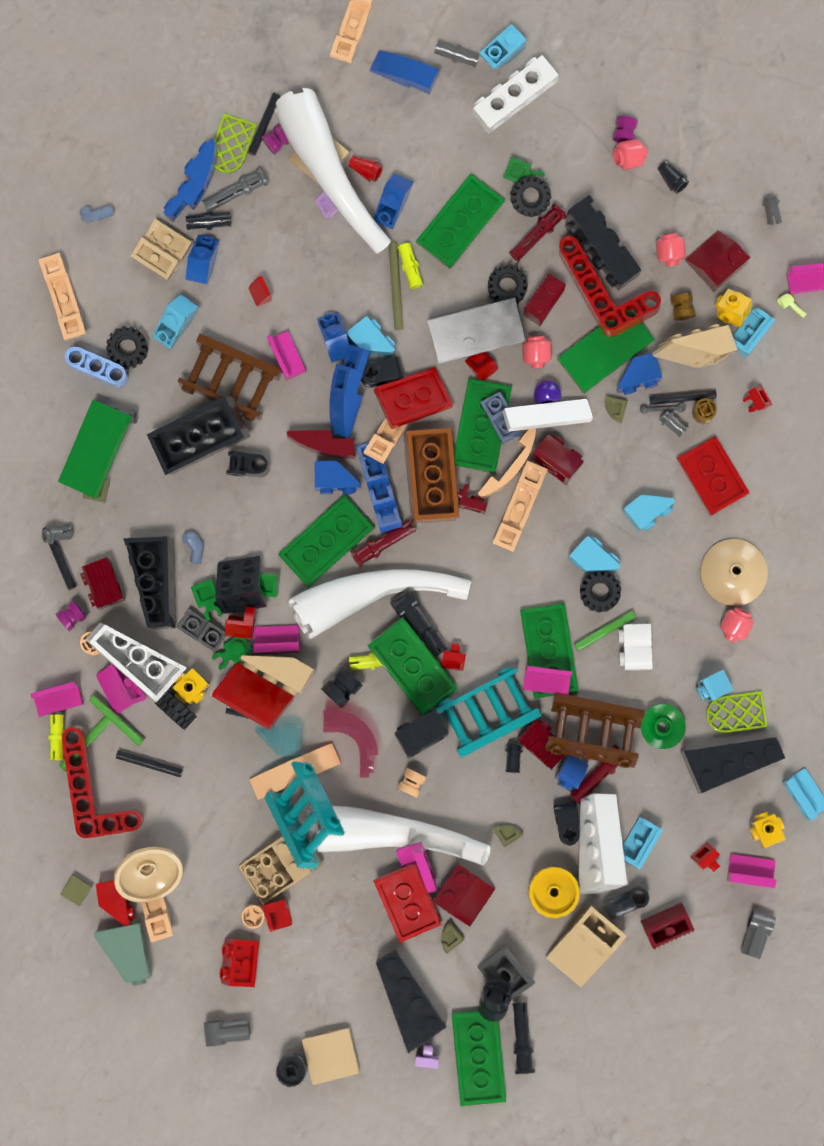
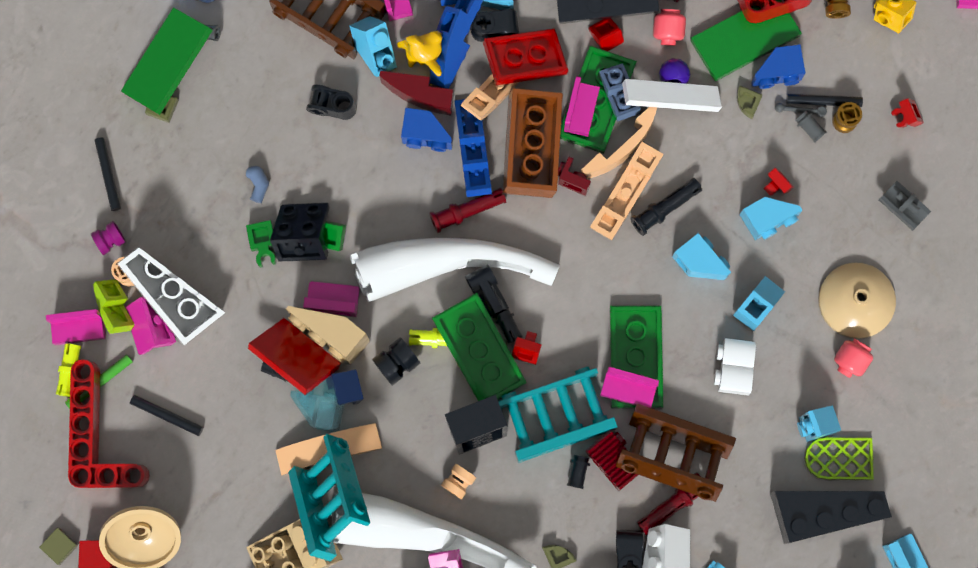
camera: 10 degrees right, 5 degrees down
(50, 534) = (108, 146): dark grey pin -> none
(84, 674) = (111, 303): none -> lime slope
(102, 584) = (149, 208): dark red brick -> none
(115, 719) = (139, 362): bright green bar -> none
(155, 578) = (207, 208): black wedge -> none
(176, 710) = (205, 358): black tyre -> none
(197, 692) = (223, 327): yellow brick -> none
(198, 435) = (282, 61): black brick -> none
(201, 630) = (250, 276): dark grey slope -> none
(234, 650) = (281, 300): green plate -> none
(241, 626) = (294, 277): red panel -> none
(276, 406) = (373, 44): none -> medium azure slope
(302, 716) = (346, 387): none -> dark blue panel
(323, 406) = (424, 50): none -> yellow animal
(326, 541) = (405, 199): green tile -> none
(344, 722) = (397, 404): clear pink arch -> none
(469, 438) = (581, 108): none -> dark pink panel
(549, 521) = (657, 212): none -> black pin
(557, 459) = (679, 149): dark red slope -> none
(571, 773) = (642, 497): blue slope -> none
(600, 605) = (703, 283): black tyre -> none
(600, 633) = (702, 343): bright green bar -> none
(649, 588) = (759, 303): none -> medium azure slope
(652, 478) = (779, 182): none -> red tile
(673, 722) = (766, 458): green dish -> none
(698, 347) = (850, 45): tan slope -> none
(713, 476) = (847, 190): red tile -> none
(752, 331) = (910, 40): medium azure hinge -> none
(764, 483) = (904, 205): none -> dark grey hips
(787, 300) = (955, 12): yellowish green hand -> none

